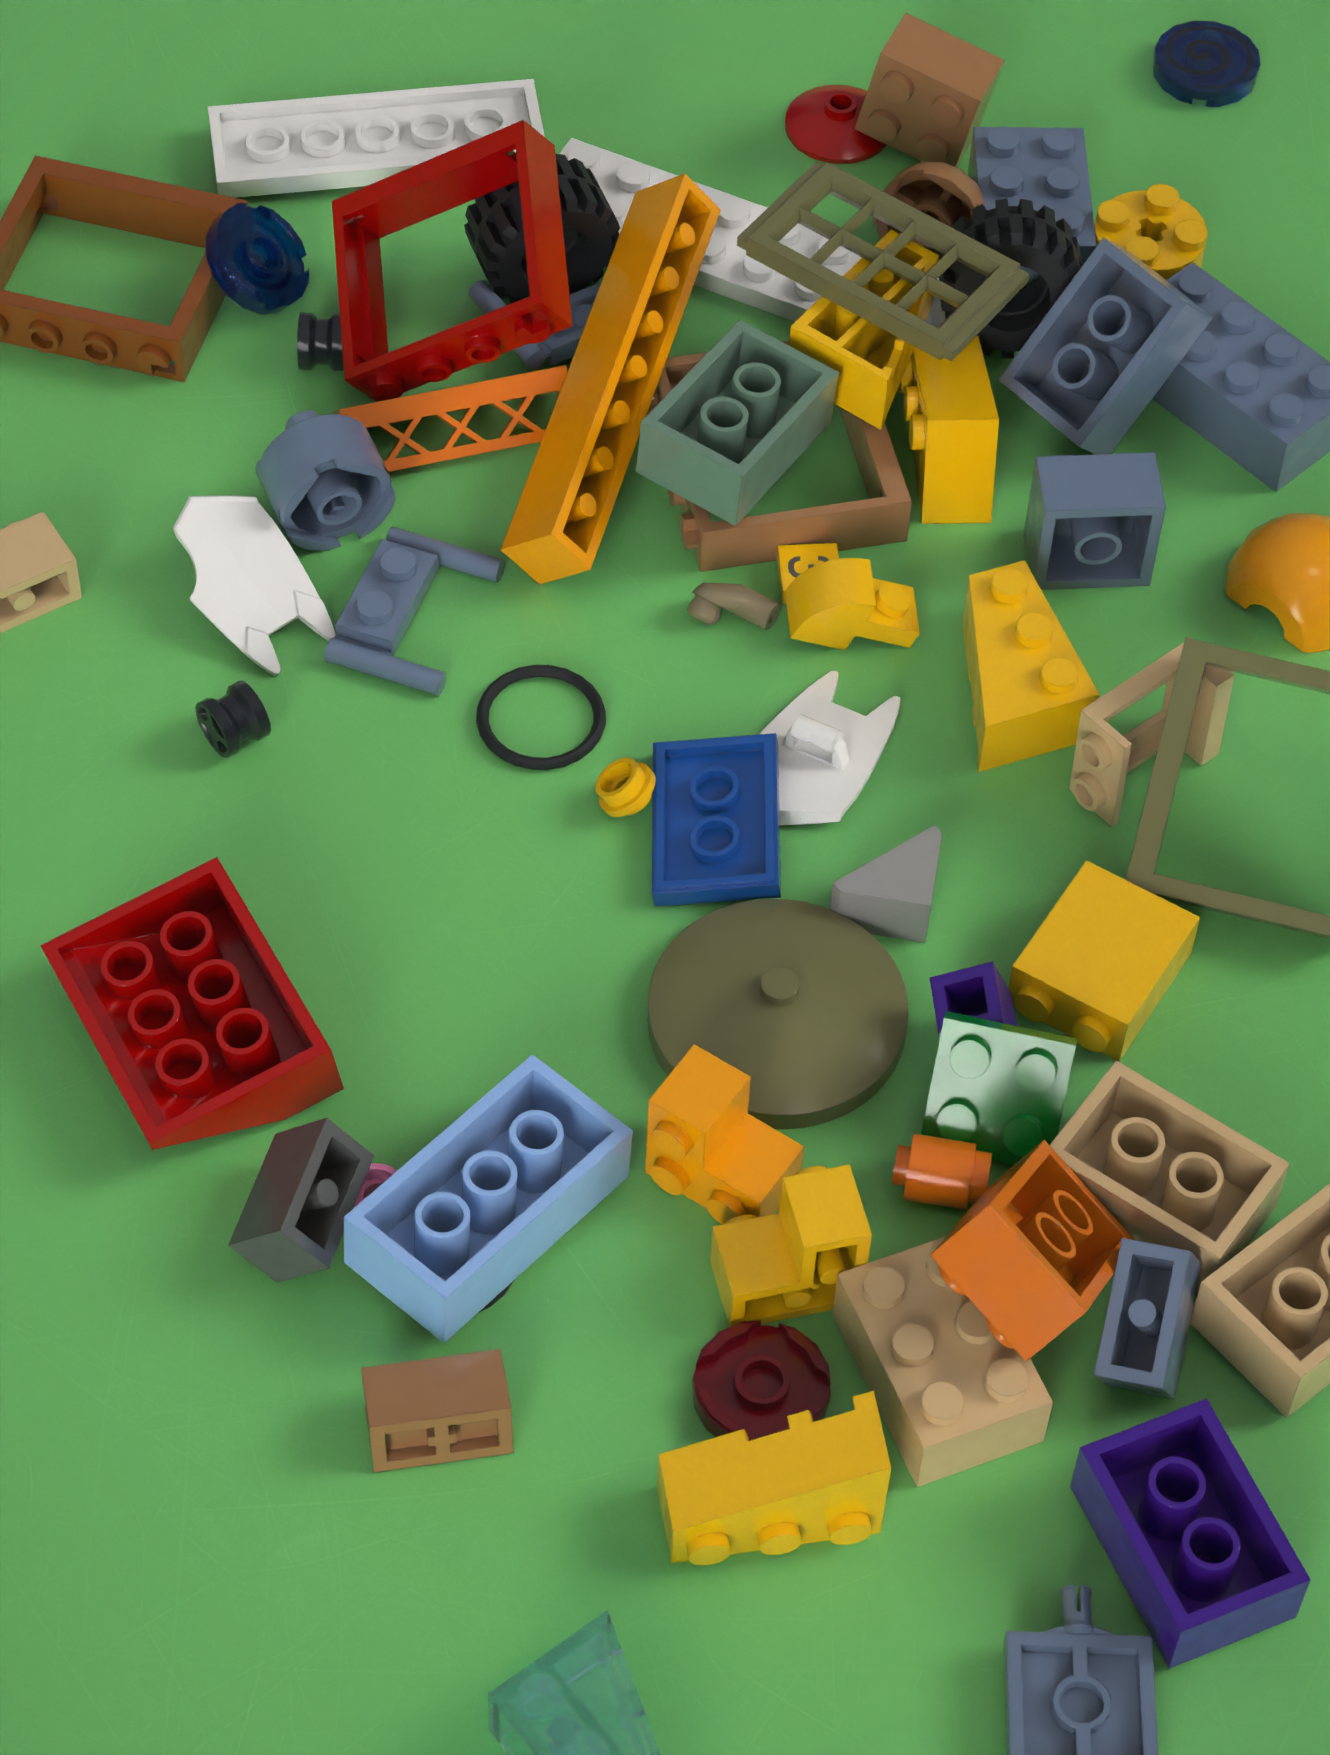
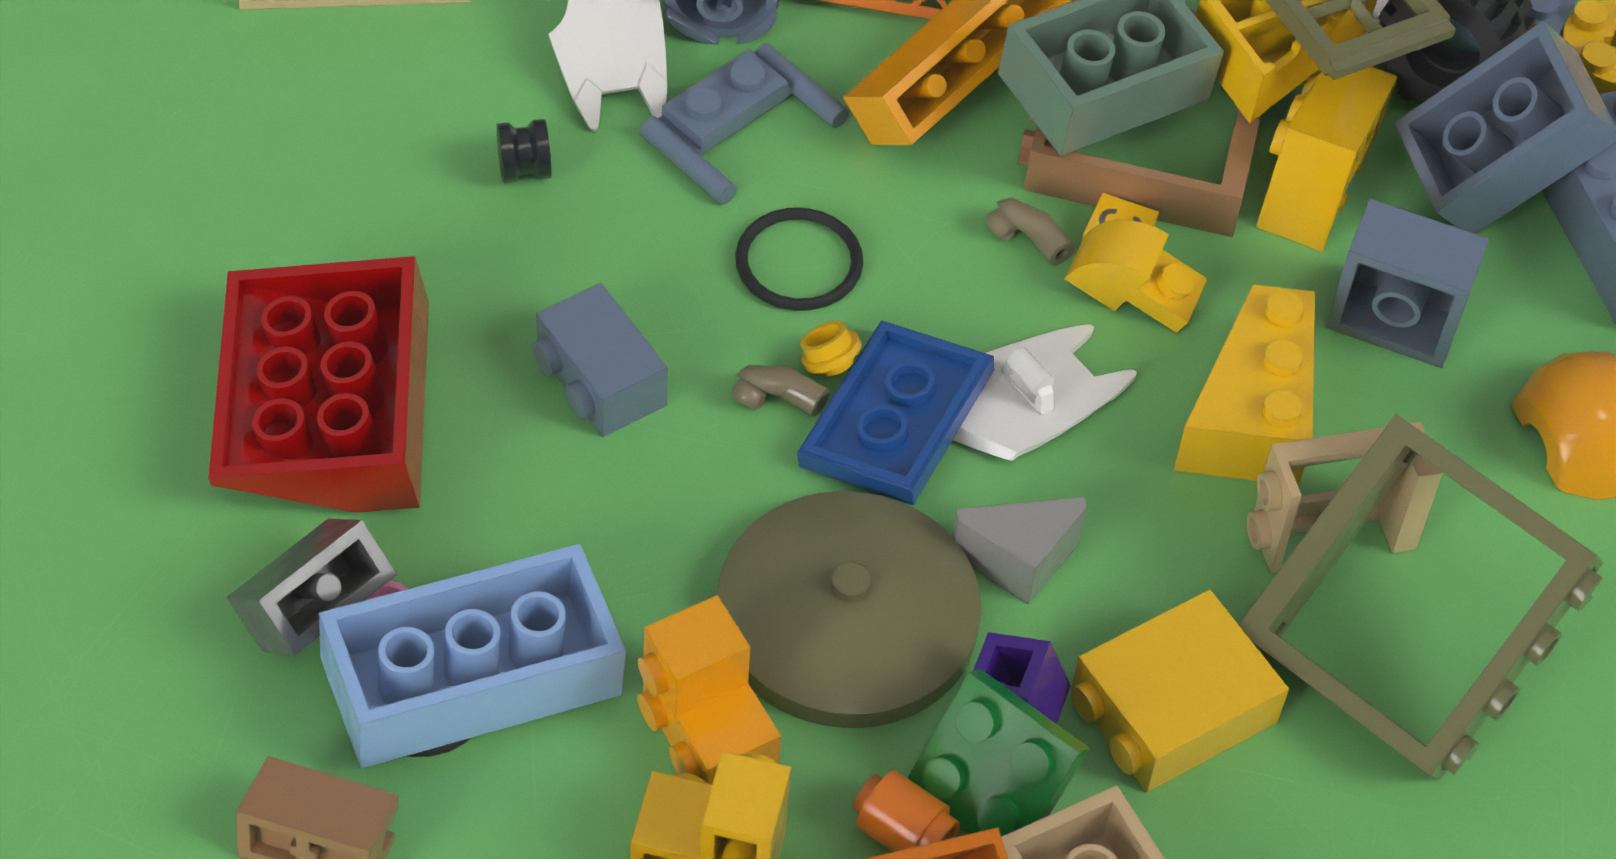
camera: 25 degrees right, 0 degrees up
(427, 883) = (600, 360): none -> sand blue brick
(598, 836) = (782, 382): none -> dark tan arm

